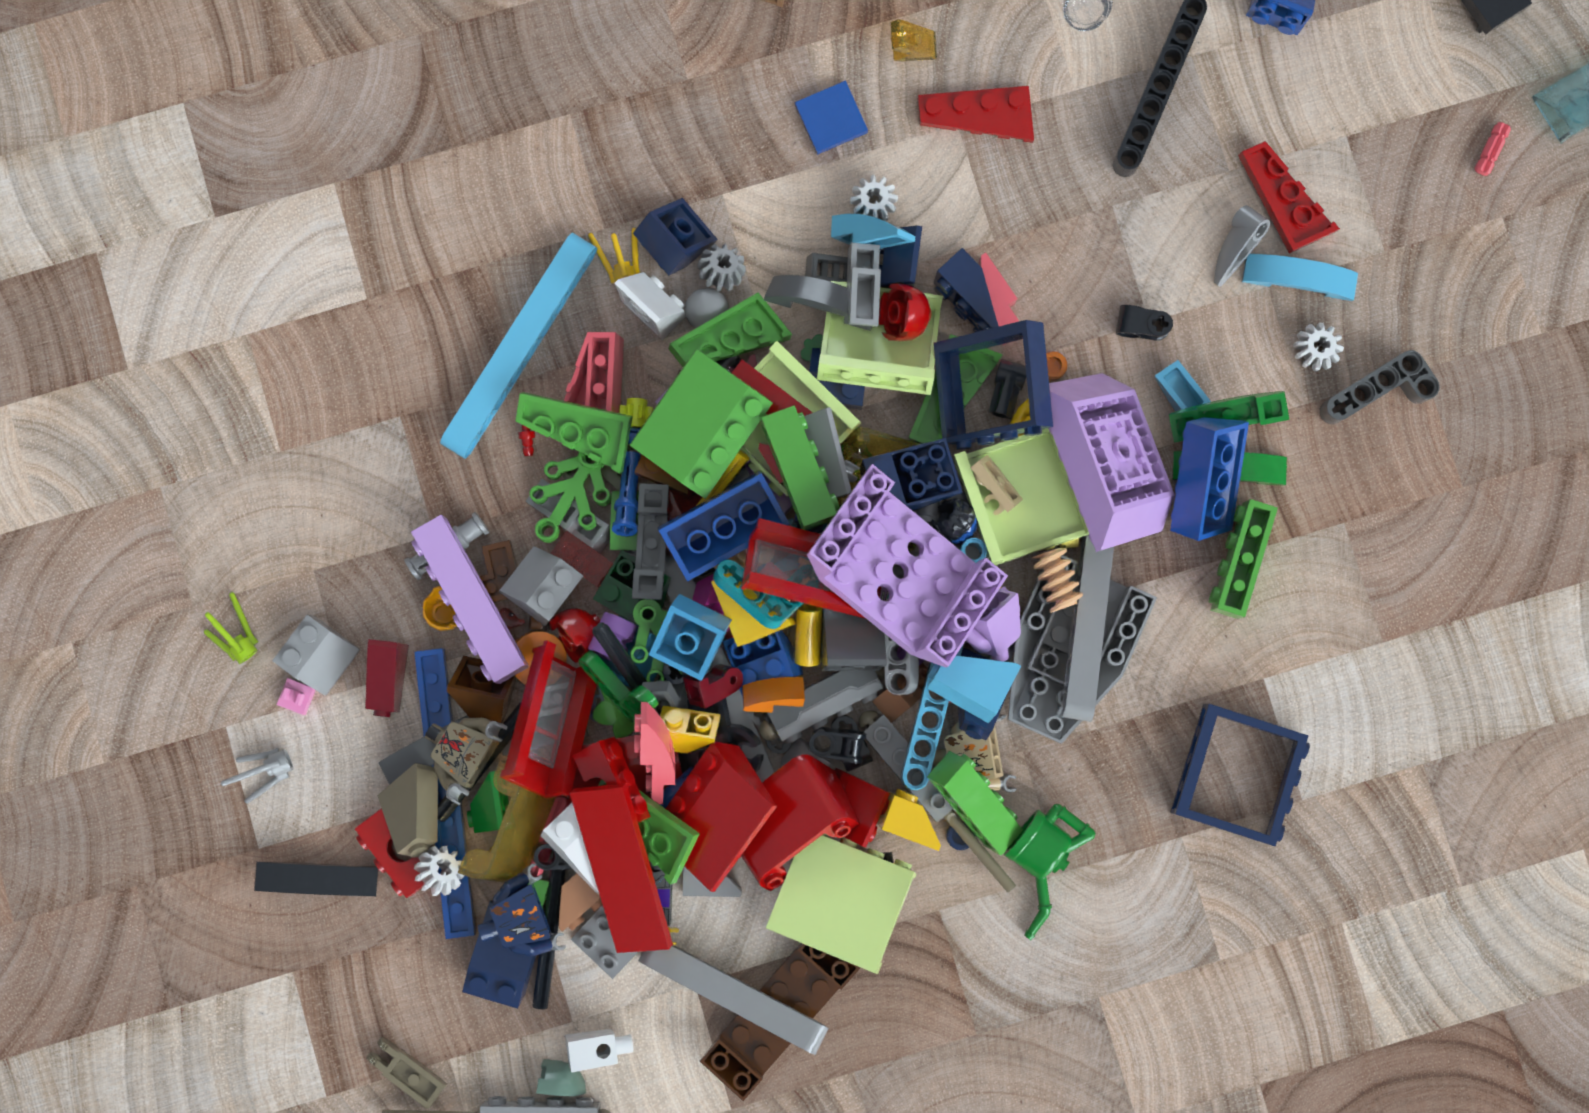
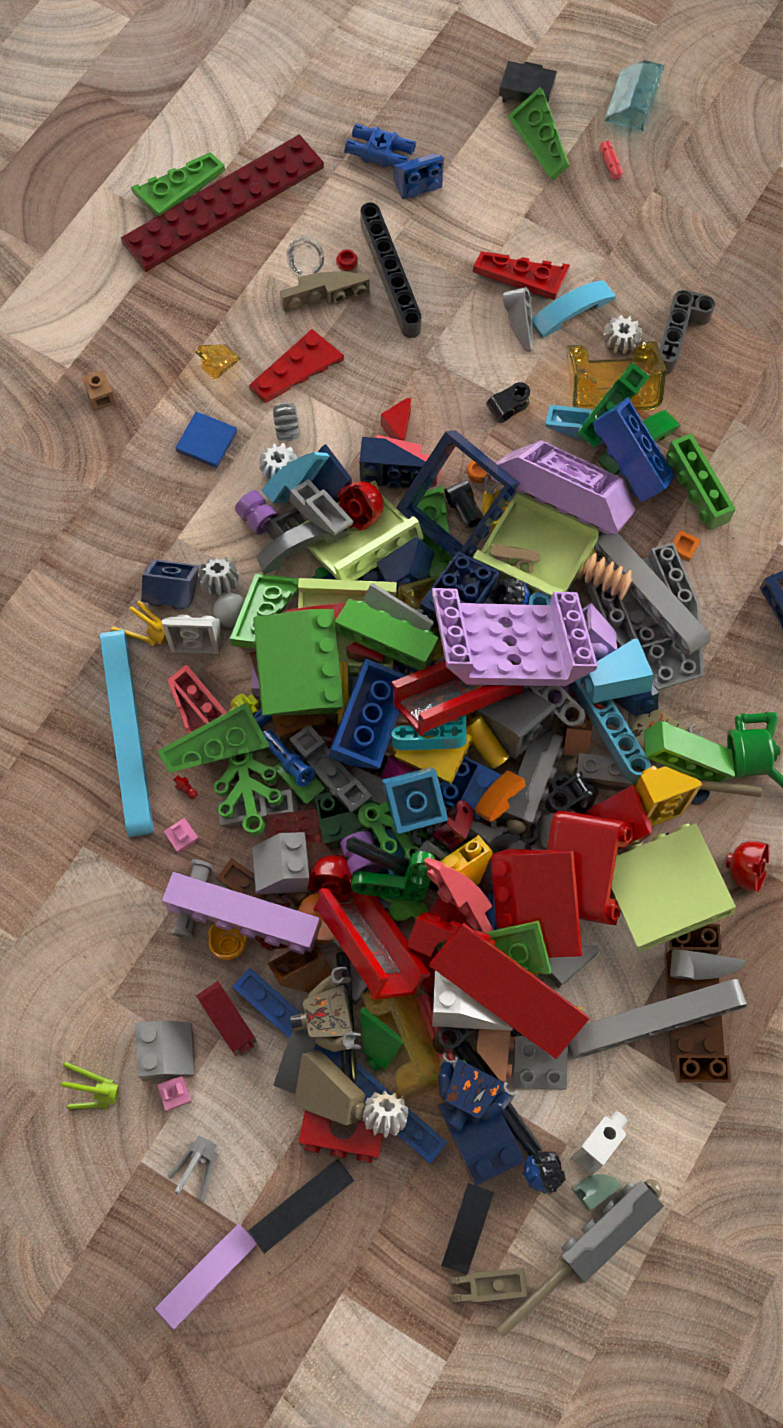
camera: 45 degrees left, 15 degrees down
(195, 865) = (205, 1277): none -> lavender slope
(430, 1015) = (467, 1228): none -> black slope
(487, 480) = (181, 835): none -> bright pink tile
(529, 1029) = (544, 1172): none -> black piece
(808, 983) = (697, 965): none -> light grey piece
(809, 231) = (254, 510): none -> medium lavender wheel
(891, 409) = (407, 563): none -> dark blue slope
(915, 165) = (286, 421): none -> light grey gear
(938, 940) = (748, 865): none -> red cylinder
(1020, 252) = (396, 419): none -> red slope
(1089, 57) = (332, 285): none -> dark tan slope
(1128, 39) = (347, 260): none -> red plate
(1171, 605) = (686, 545): none -> orange plate
(1252, 368) = (593, 378): none -> clear yellow windscreen
(1448, 54) = (538, 130): none -> bright green wing

